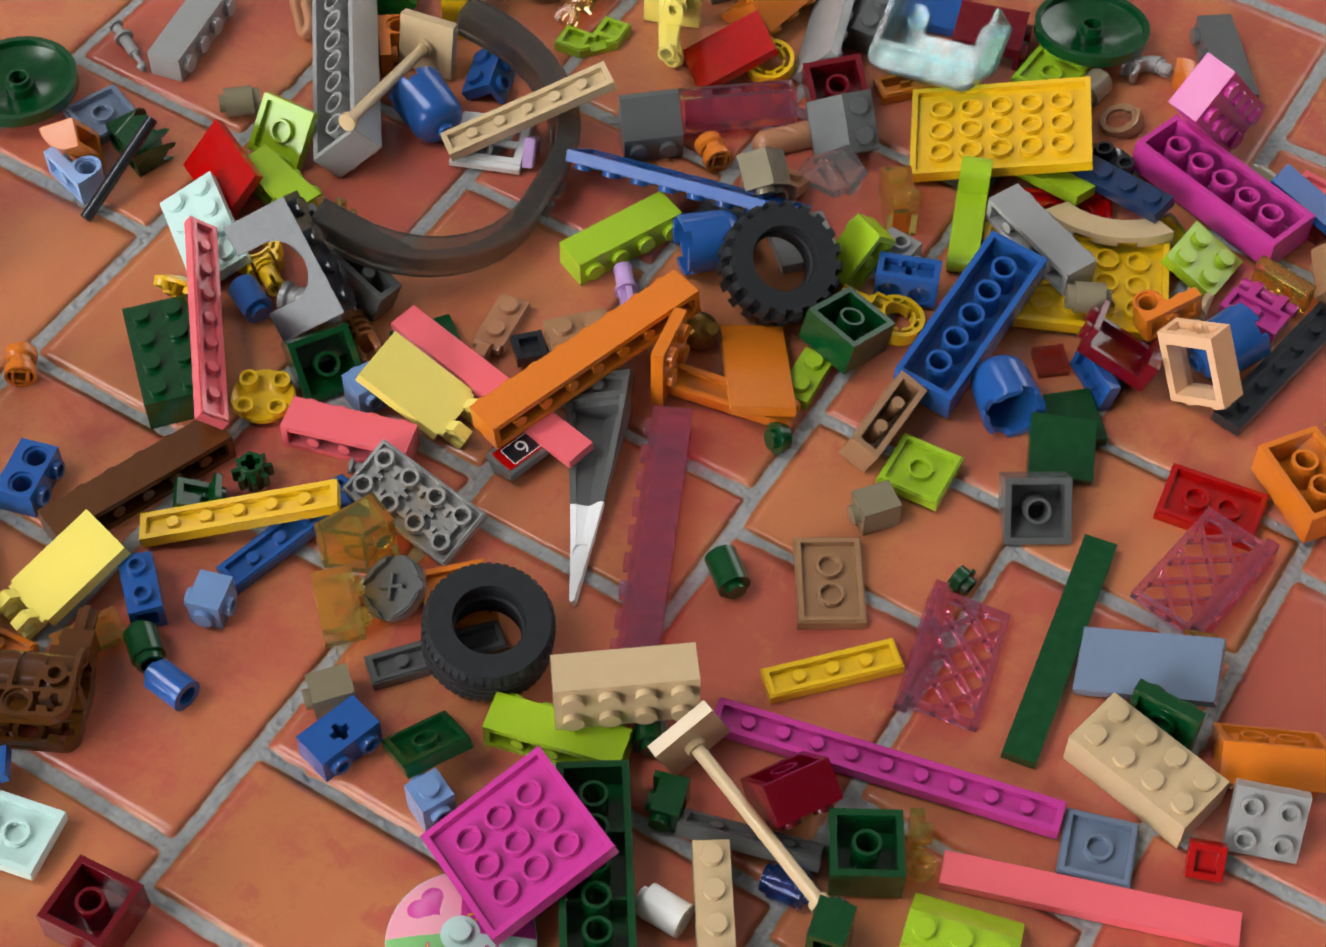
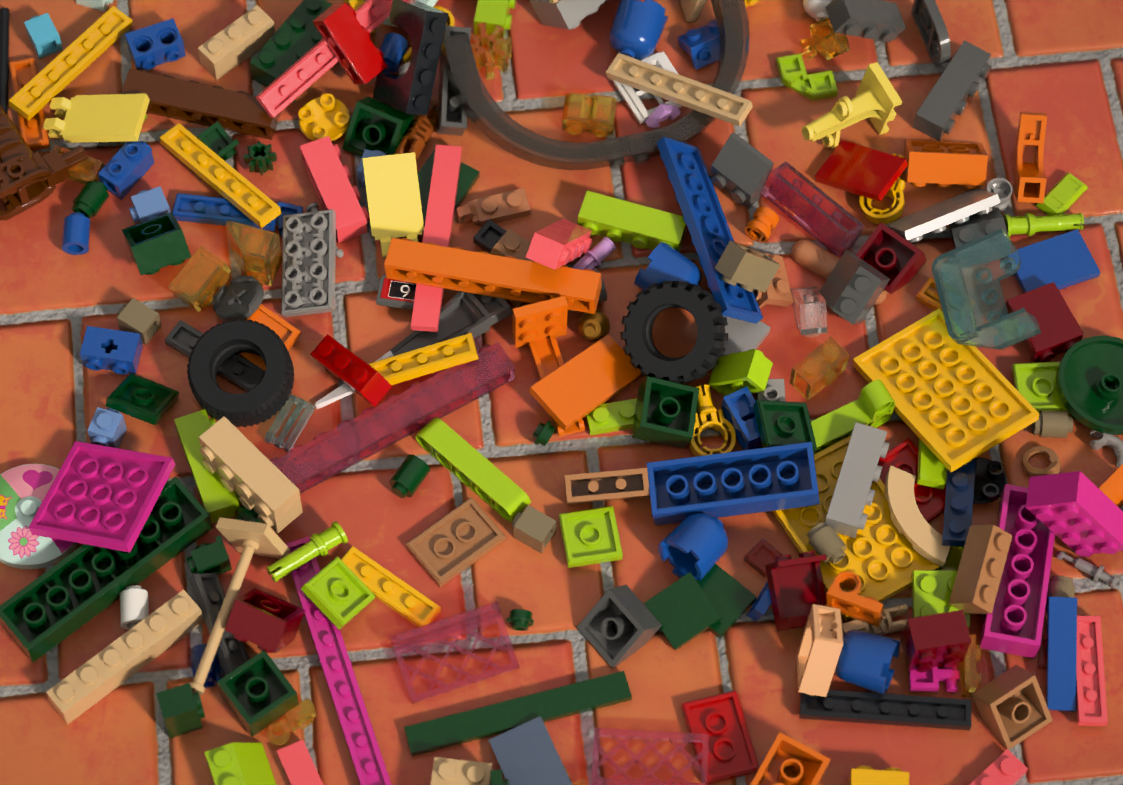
camera: 50 degrees right, 10 degrees up
(104, 409) = (236, 42): none -> tan brick
(222, 305) = (350, 43): none -> red brick
(264, 612) = (156, 244): none -> dark green brick
(475, 197) = (589, 114): none -> clear yellow brick
(574, 537) = (351, 370): none -> red brick
(580, 627) = (279, 442): none -> clear light blue tile
(607, 285) = (559, 244): none -> coral brick
(617, 477) = (427, 359): none -> yellow tile
(742, 692) = (318, 545): none -> lime pin
(765, 516) = (472, 469): none -> lime beam
(810, 708) = (338, 593): none -> lime plate
(943, 249) = (783, 423): none -> dark green tile
(1211, 204) = (980, 569): none -> medium nougat brick
(1259, 149) = (1092, 570): none -> light grey piece
(1259, 273) = (935, 641): none -> dark red brick

